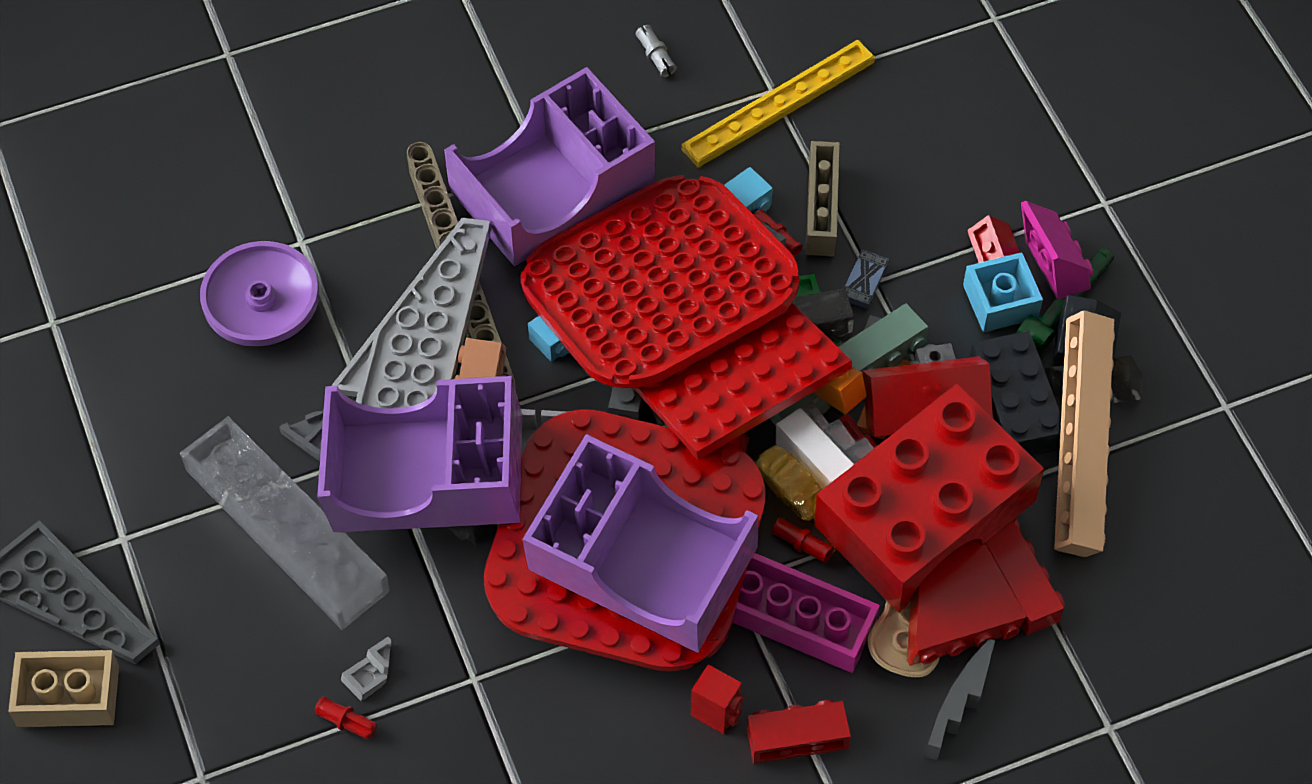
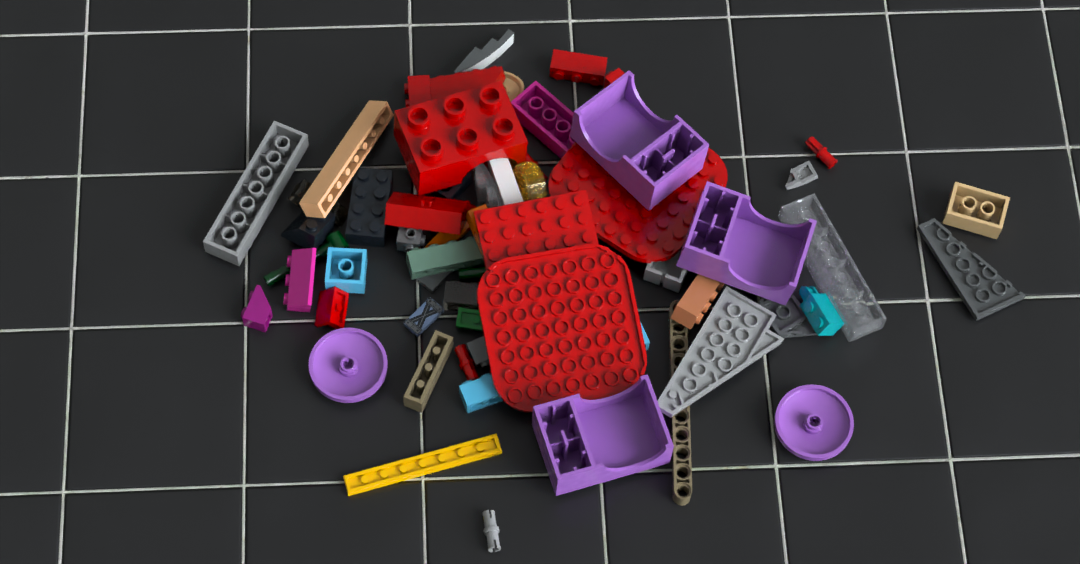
camera: 165 degrees left, 5 degrees up
(287, 445) = (820, 311): none -> teal brick
(935, 174) = (348, 365): none -> medium lavender dish
(1093, 211) = (258, 311): none -> magenta slope
(1189, 362) = (256, 193): none -> light grey brick

